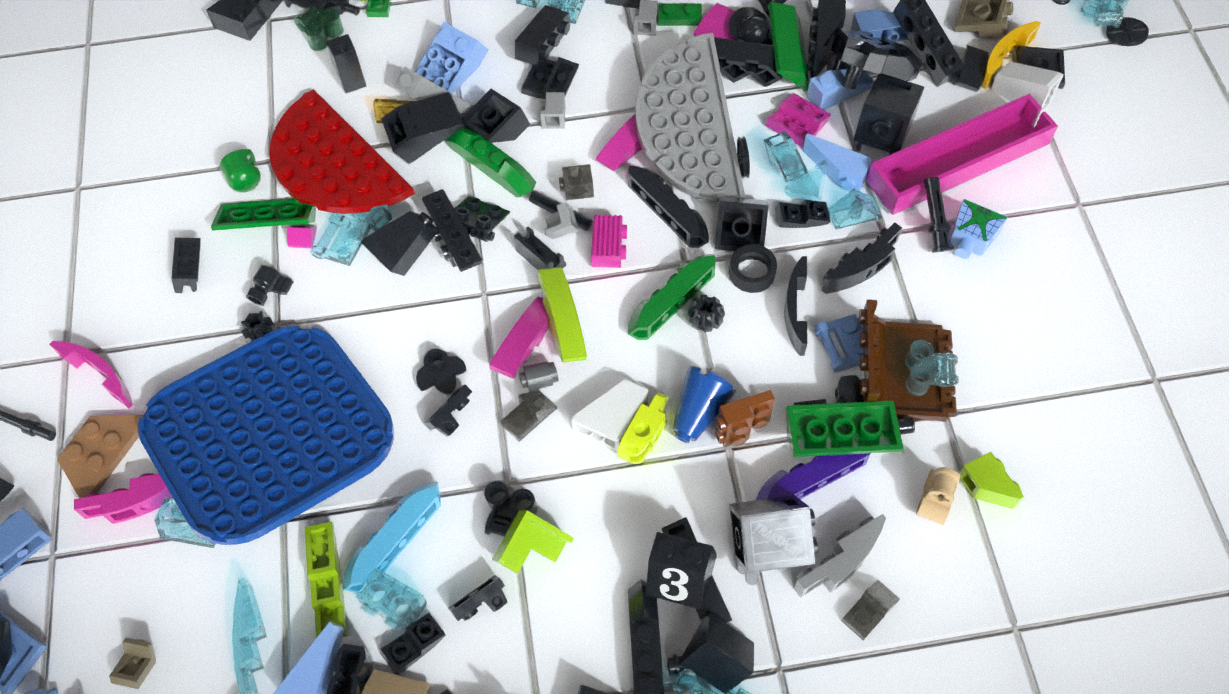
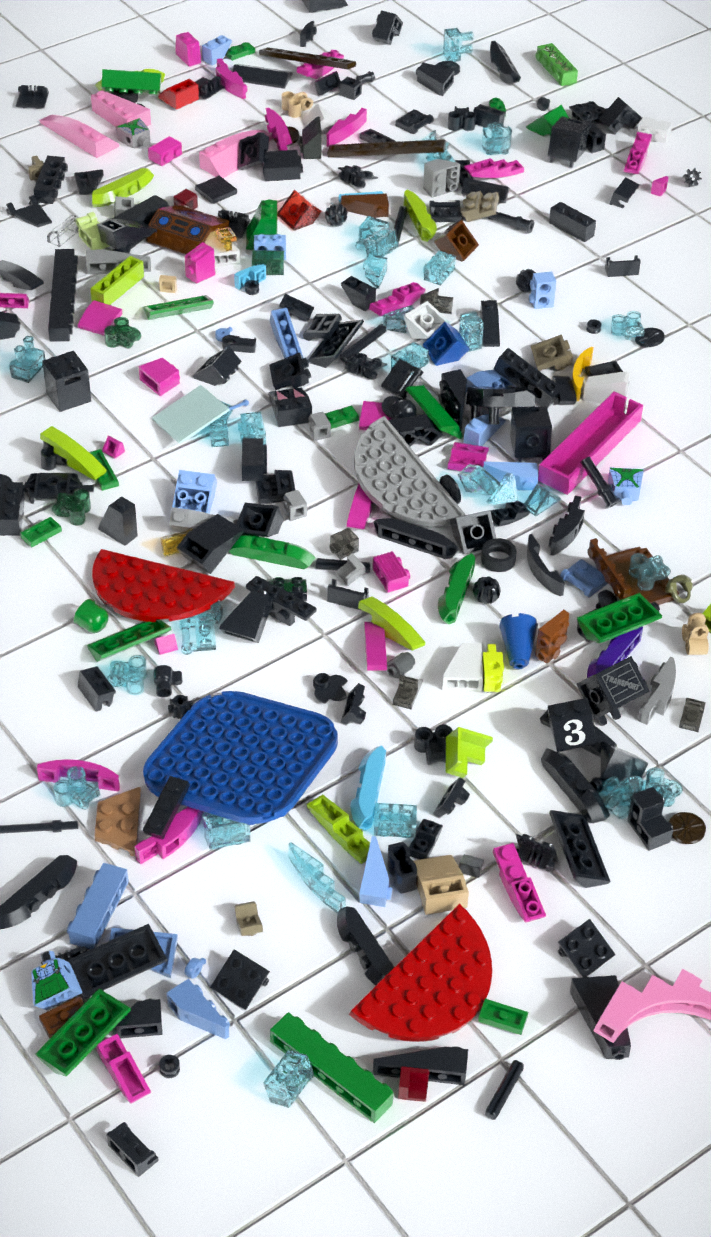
camera: 30 degrees left, 15 degrees down
(77, 389) = (75, 789): none -> clear light blue piece
(129, 466) = (166, 807): none -> black plate
(234, 261) = (129, 674): none -> clear light blue piece
(266, 45) = (41, 532): none -> green plate
(948, 404) = (685, 582): none -> olive piece

